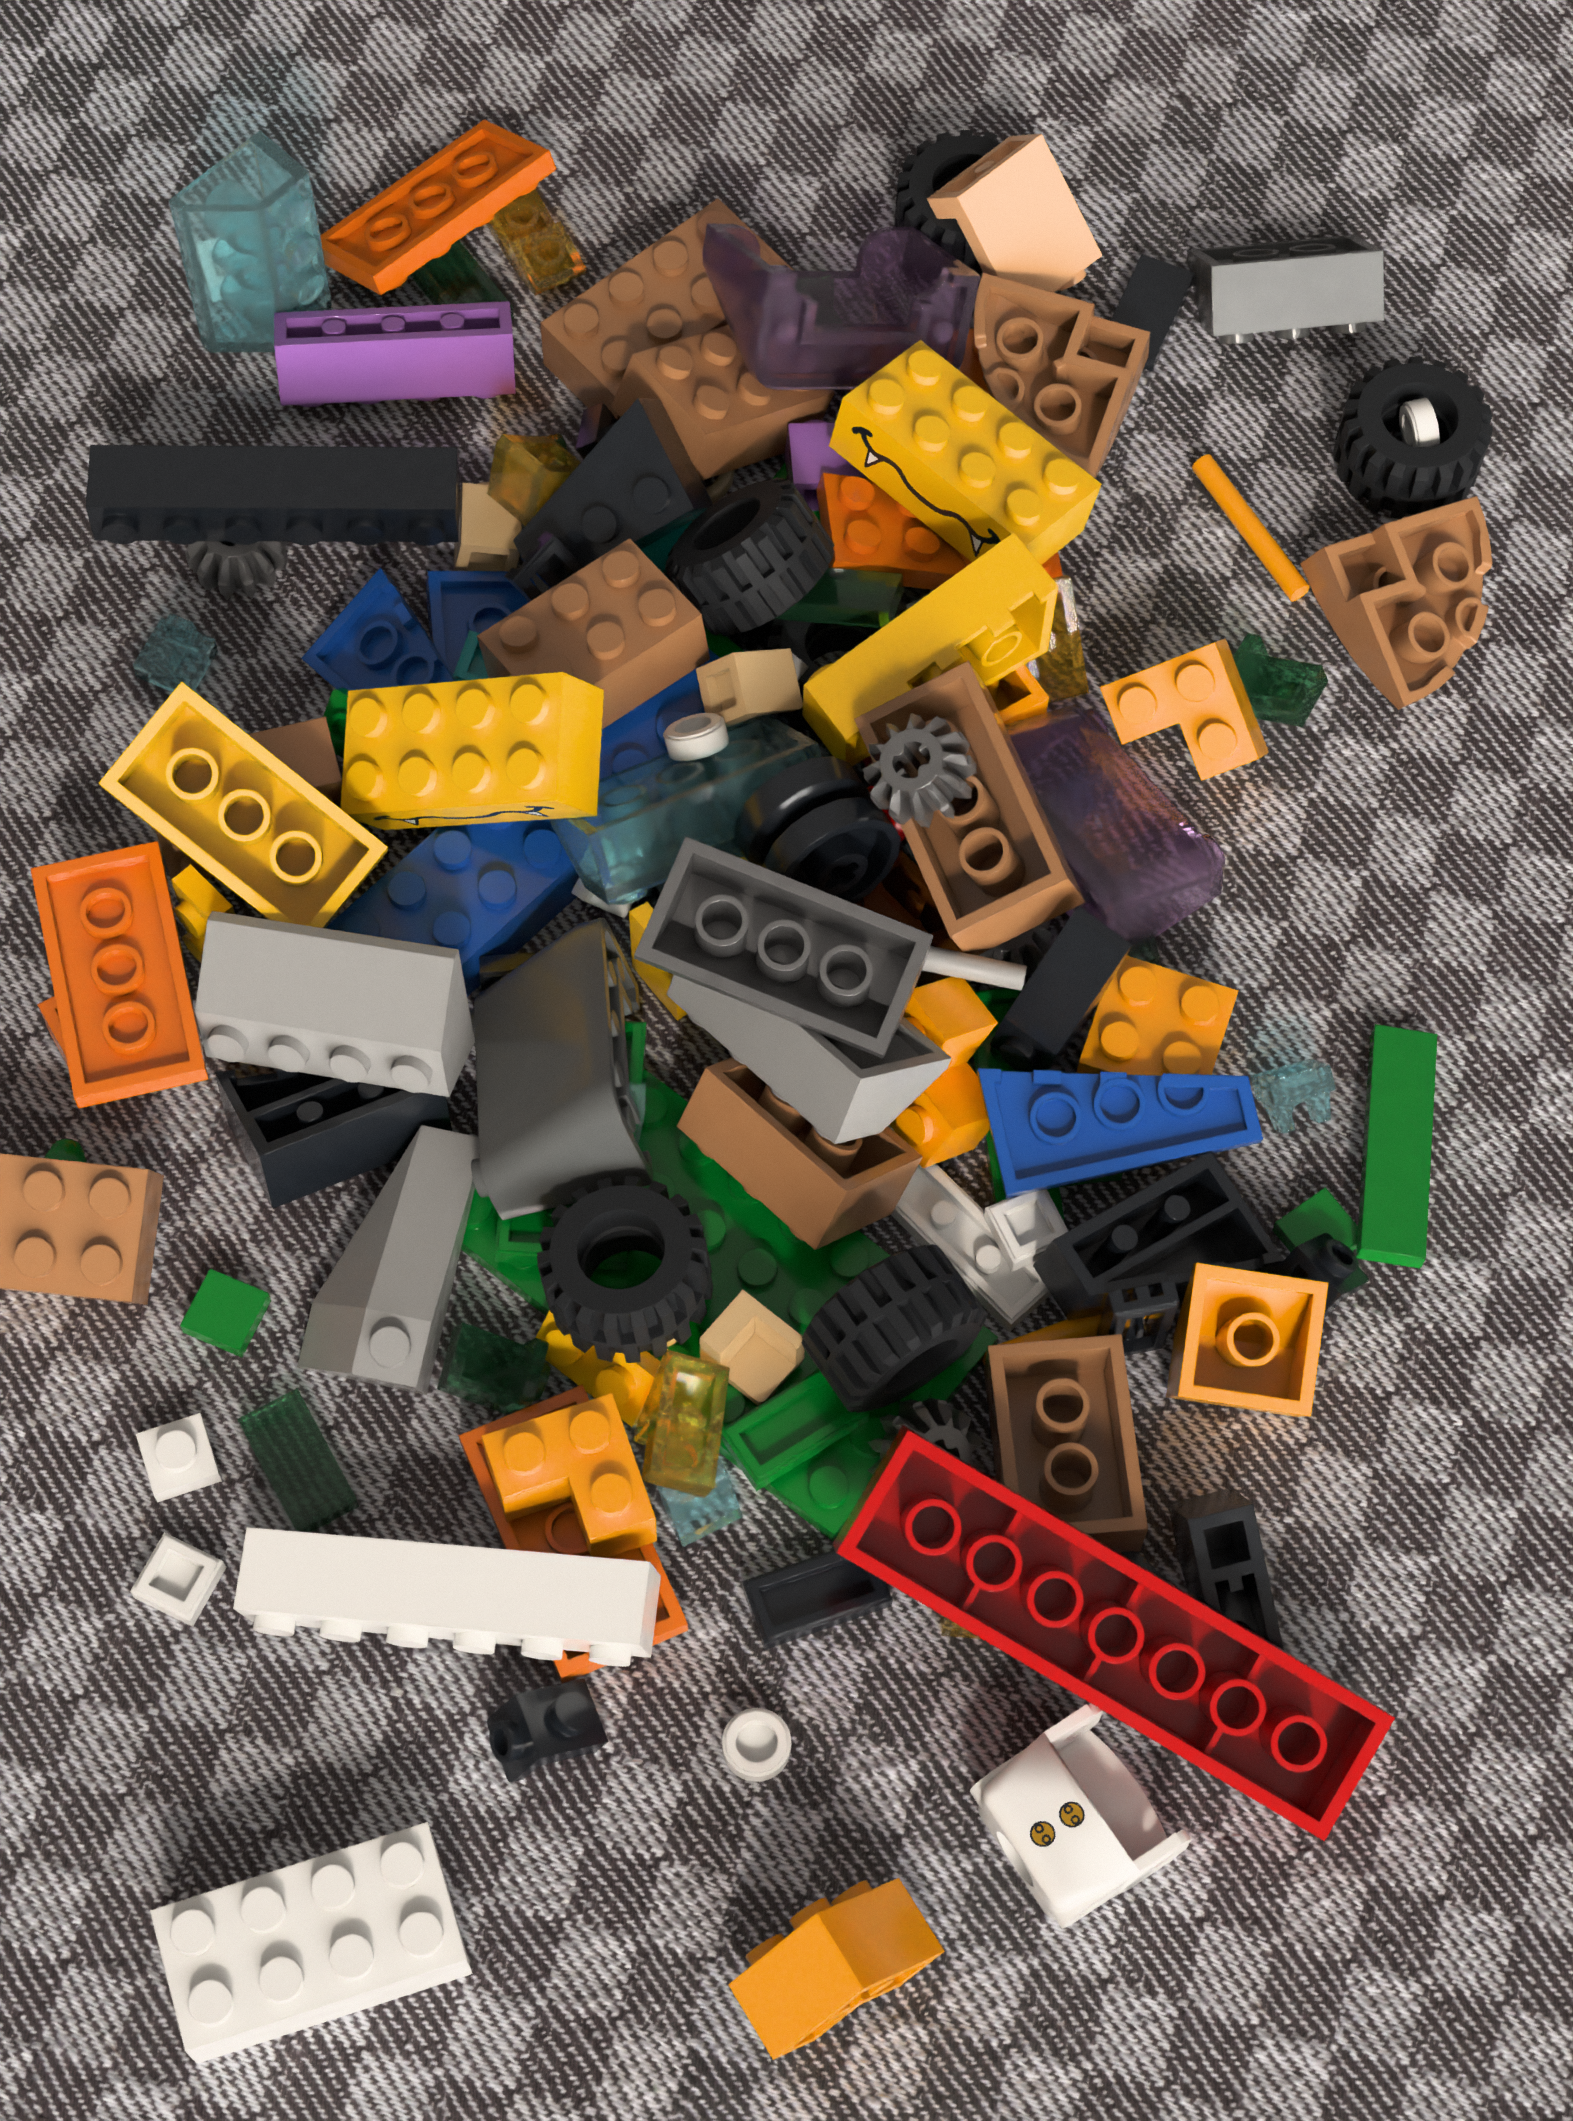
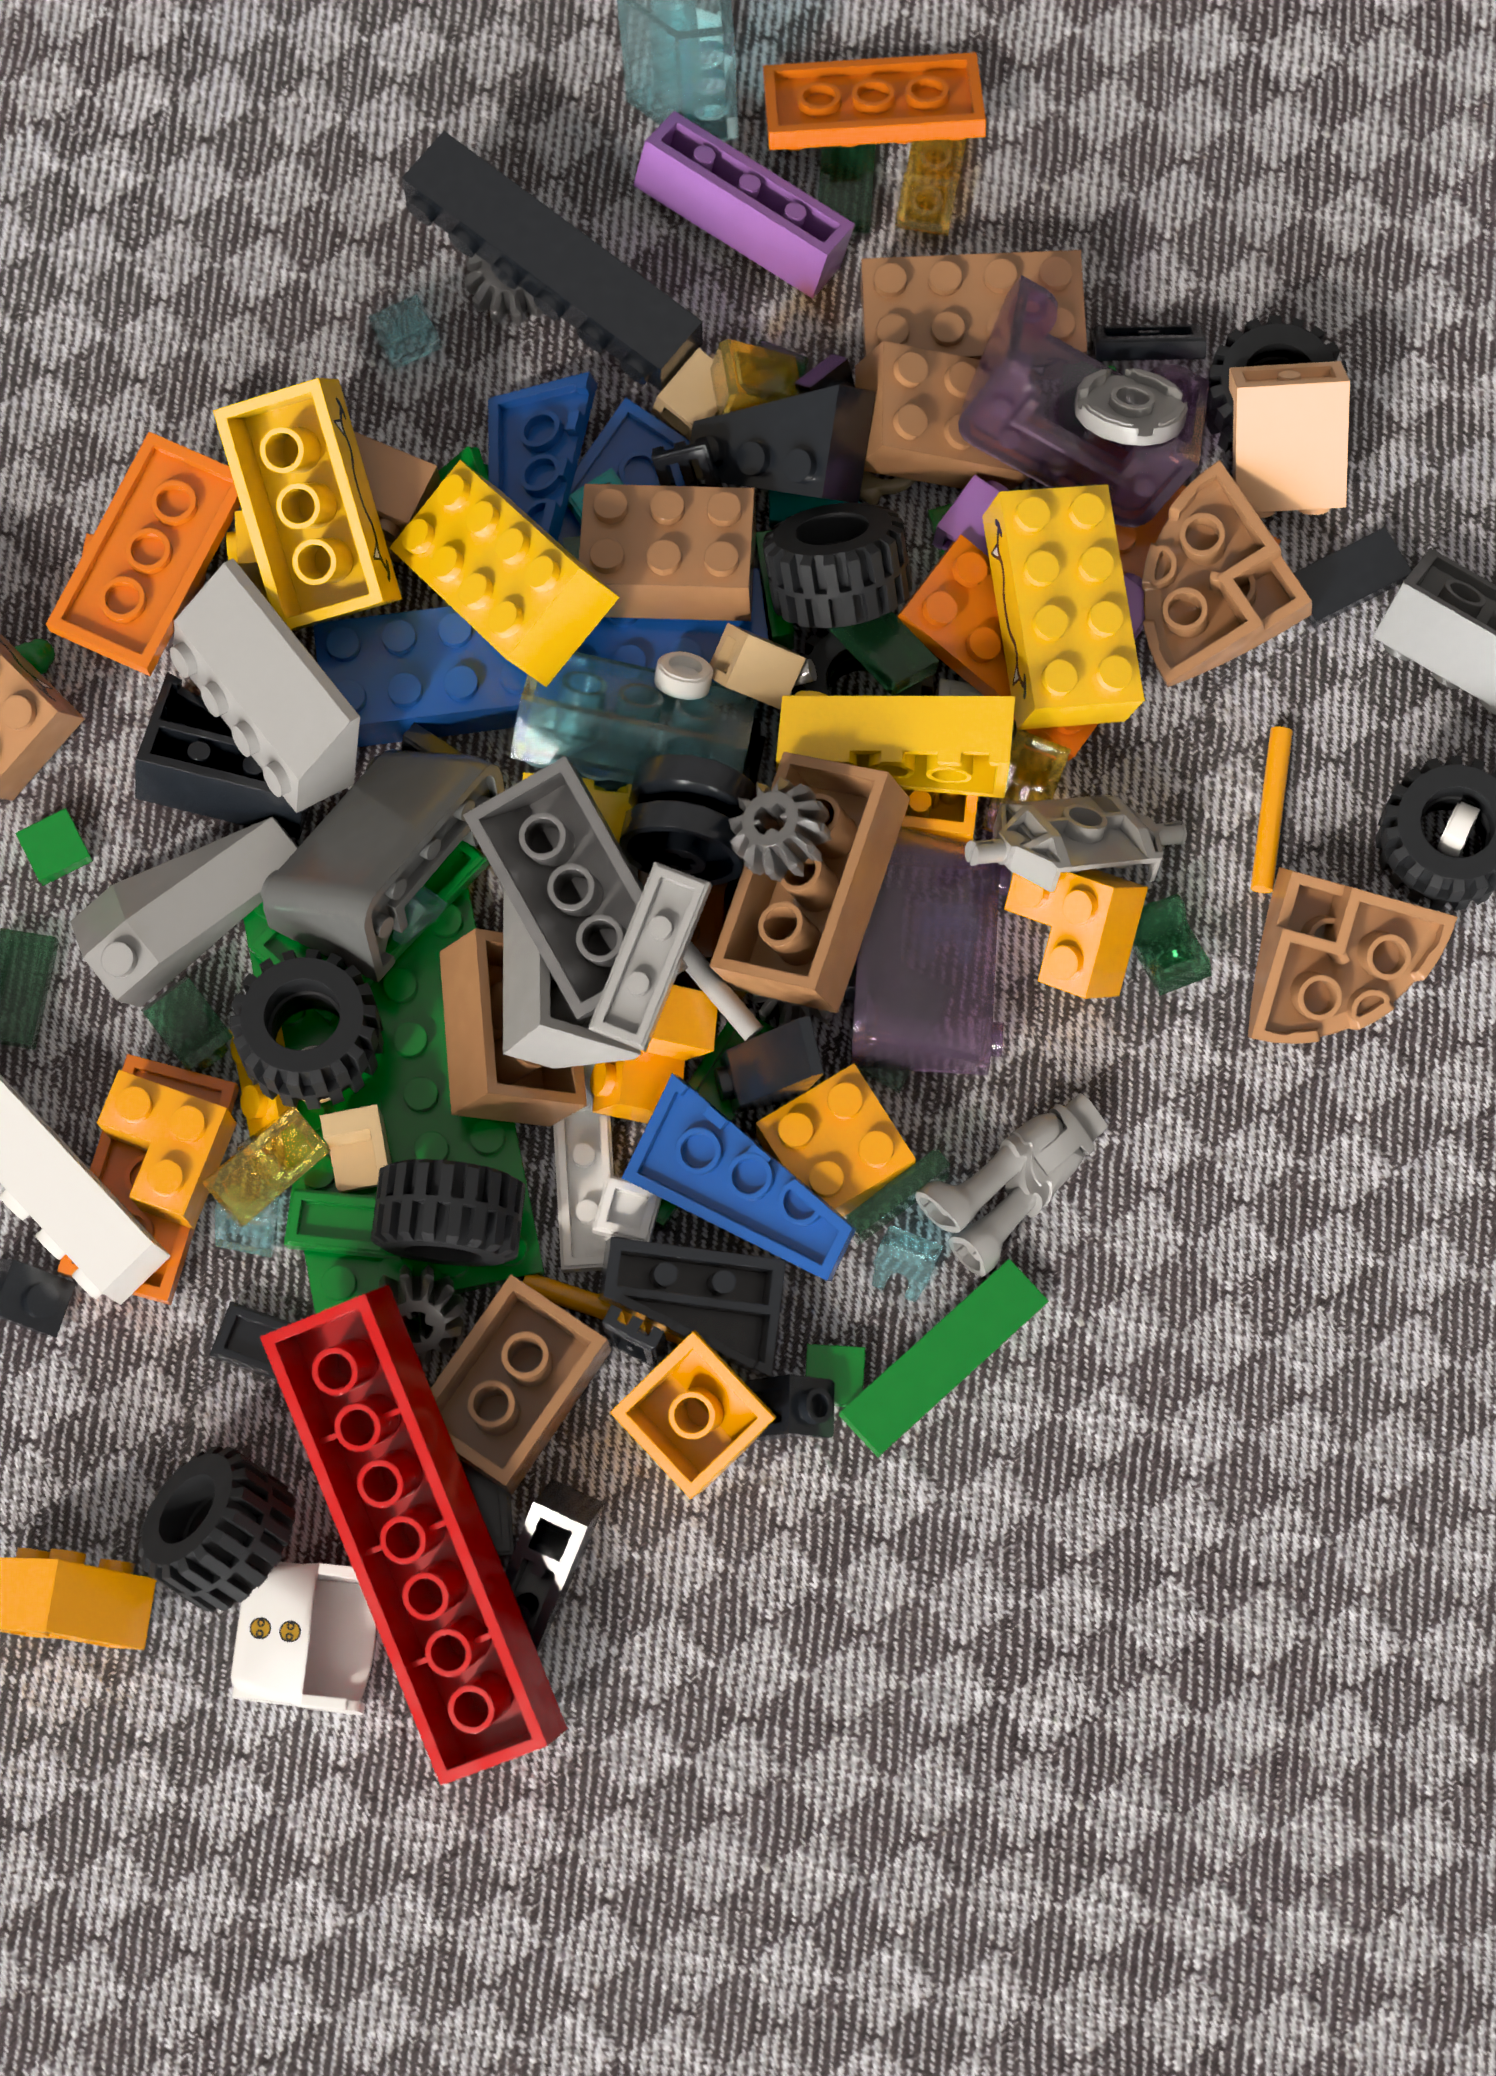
camera: 45 degrees right, 10 degrees up
(756, 1744) = (150, 1416): white tile -> none
(835, 236) = (1148, 342): none -> black tile
(876, 278) = (1131, 407): none -> light grey tile
(908, 949) = (650, 956): none -> light grey tile
(924, 1778) = (216, 1529): none -> black tyre
(1129, 644) = (1073, 836): none -> light grey plate
(1243, 1025) = (897, 1195): none -> clear green tile
(1324, 937) = (1032, 1168): none -> light grey piece

